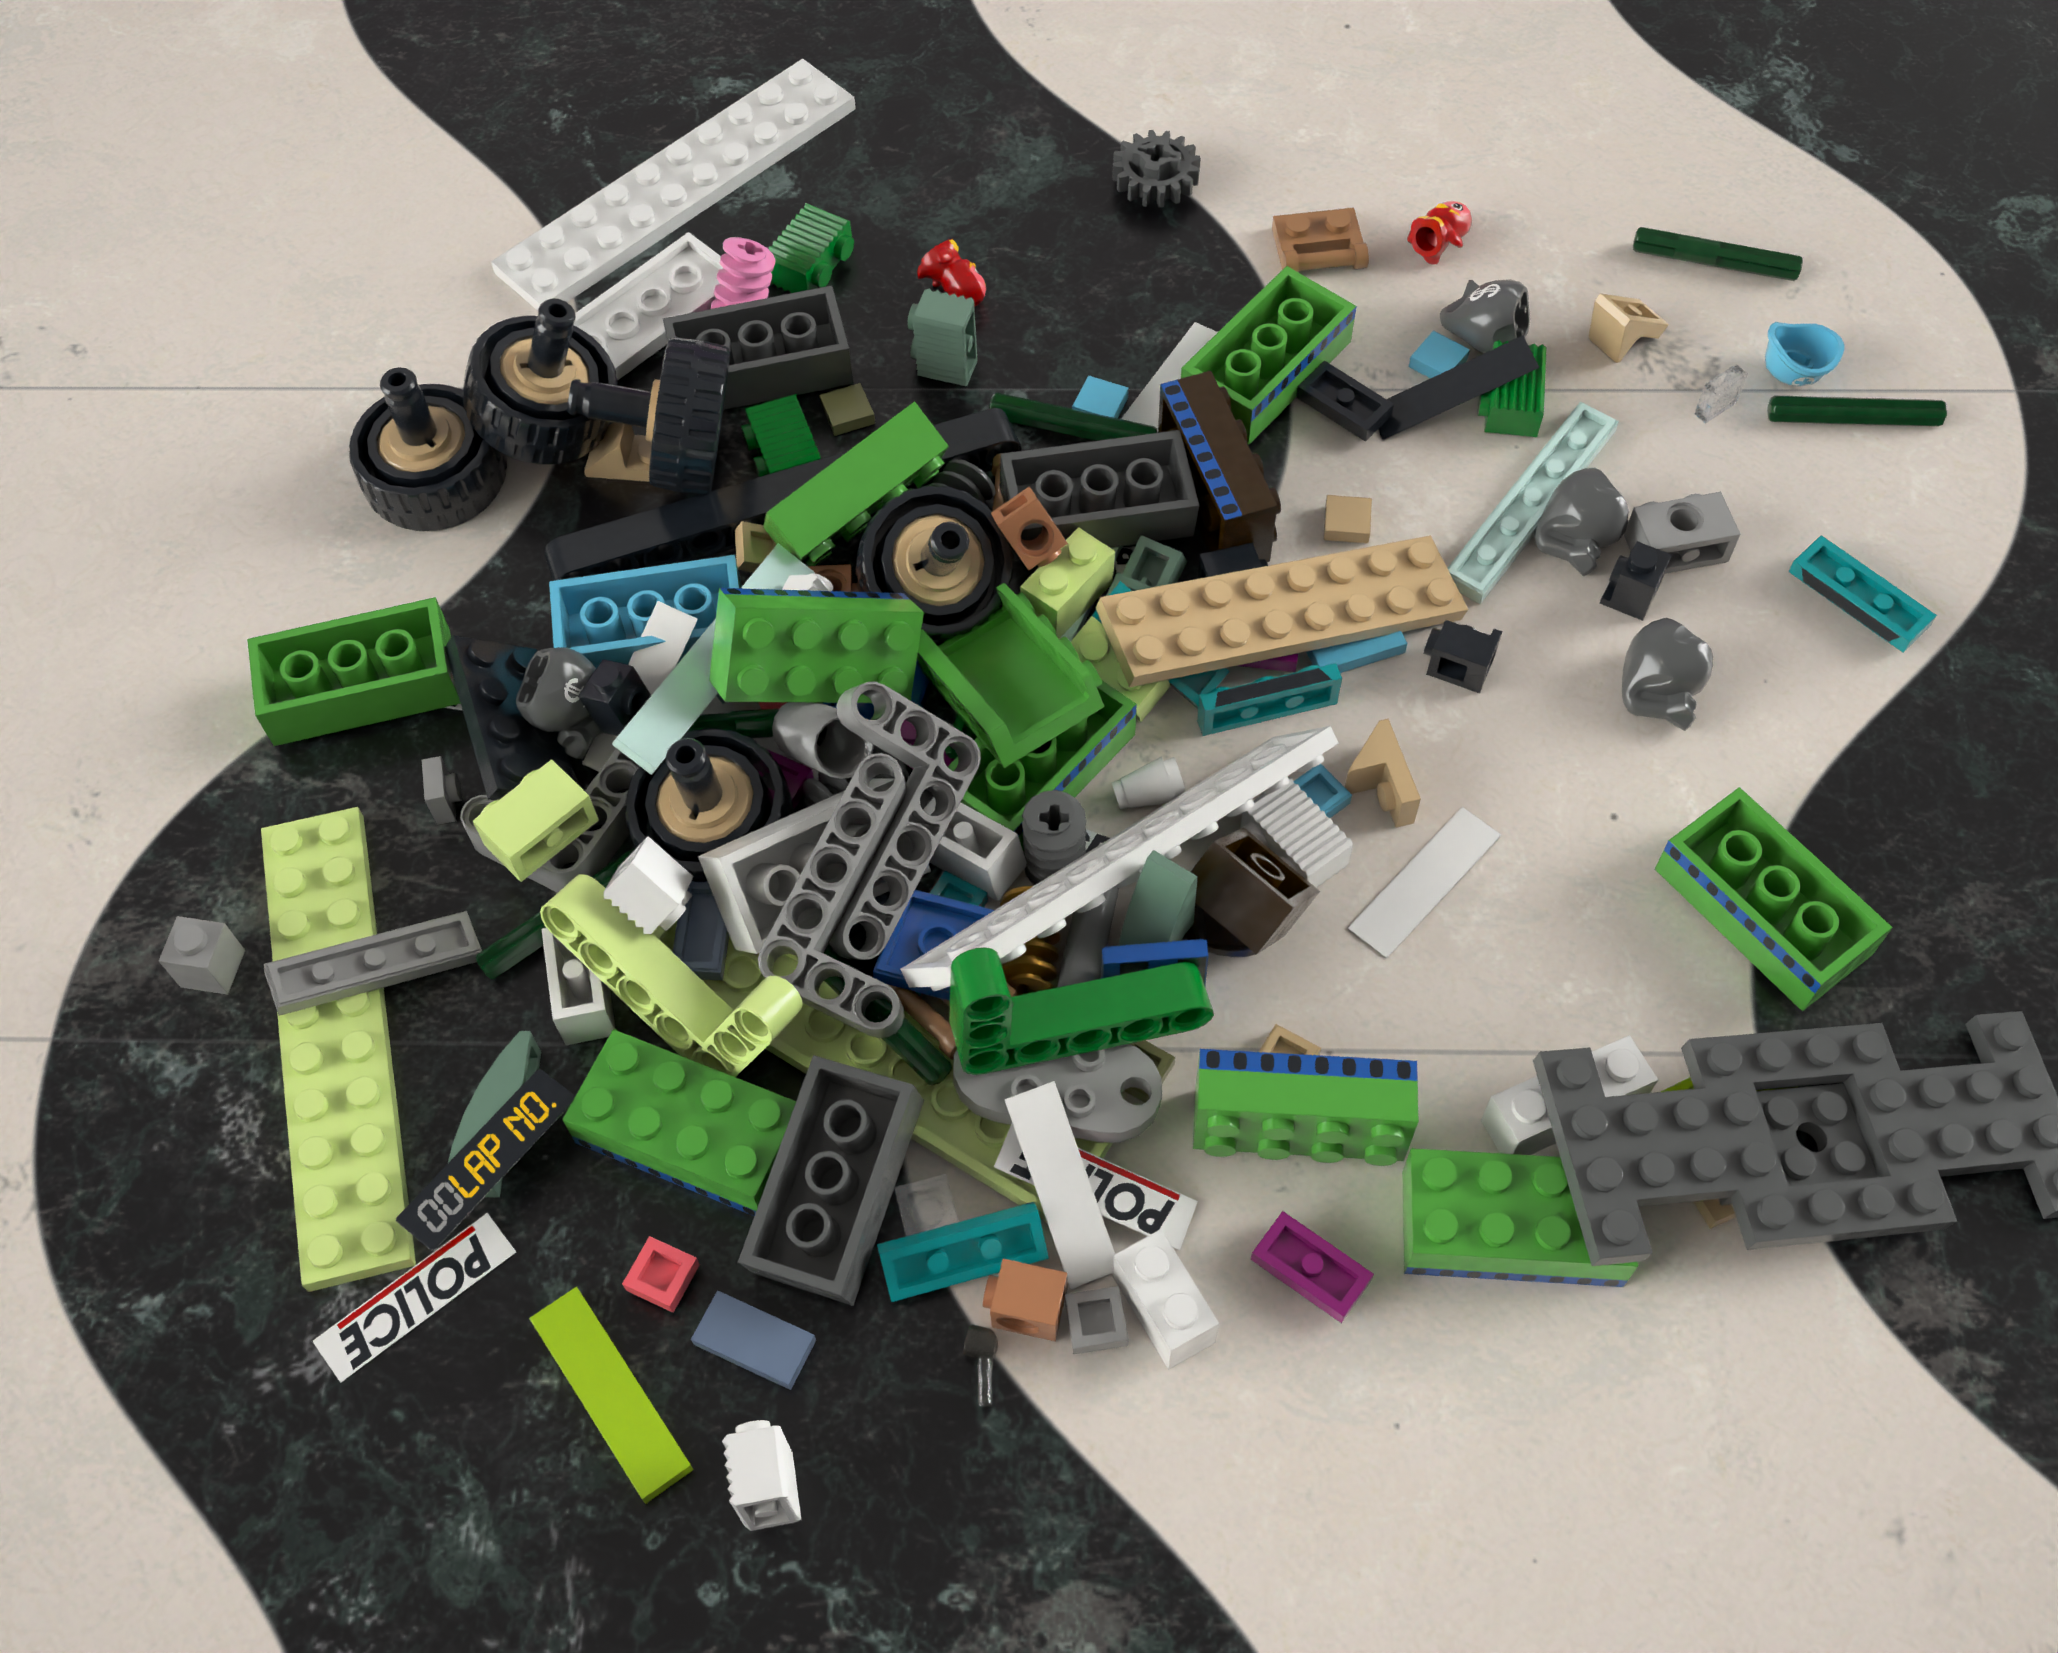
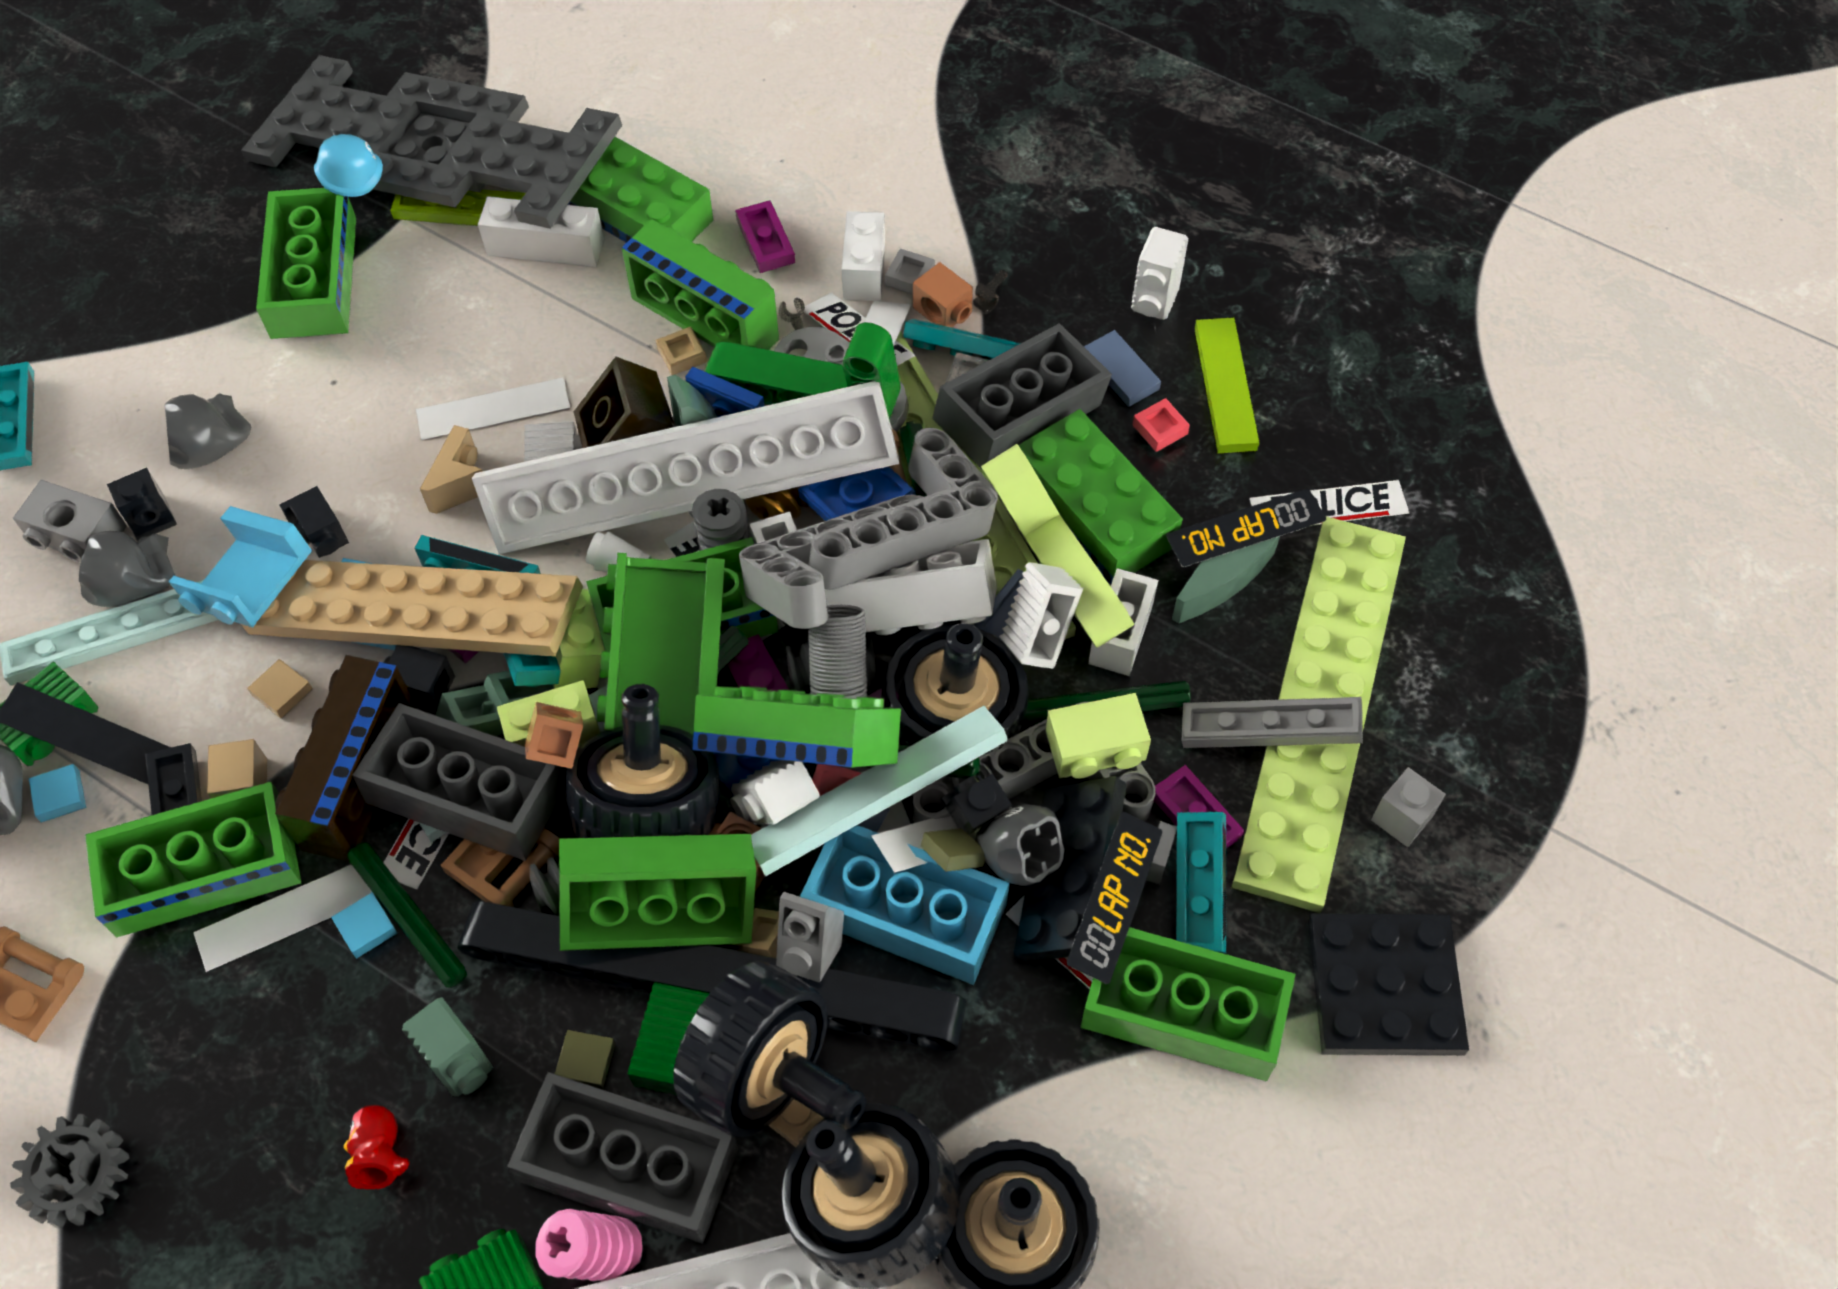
camera: 150 degrees left, 0 degrees up
(179, 802) = (1387, 985): none -> black plate
(384, 776) = (1201, 879): none -> teal plate
(420, 848) = (1186, 793): none -> magenta plate
(448, 690) = (1114, 898): none -> black sticker
(619, 646) = (953, 849): none -> olive tile
(704, 522) = (807, 936): none -> light grey slope
(1190, 1172) = (795, 319): none -> clear smoke hand
(1303, 432) = (235, 767): none -> tan brick
(1465, 560) = (250, 571): none -> medium azure panel
(1839, 1005) = (347, 166): none -> medium azure helmet

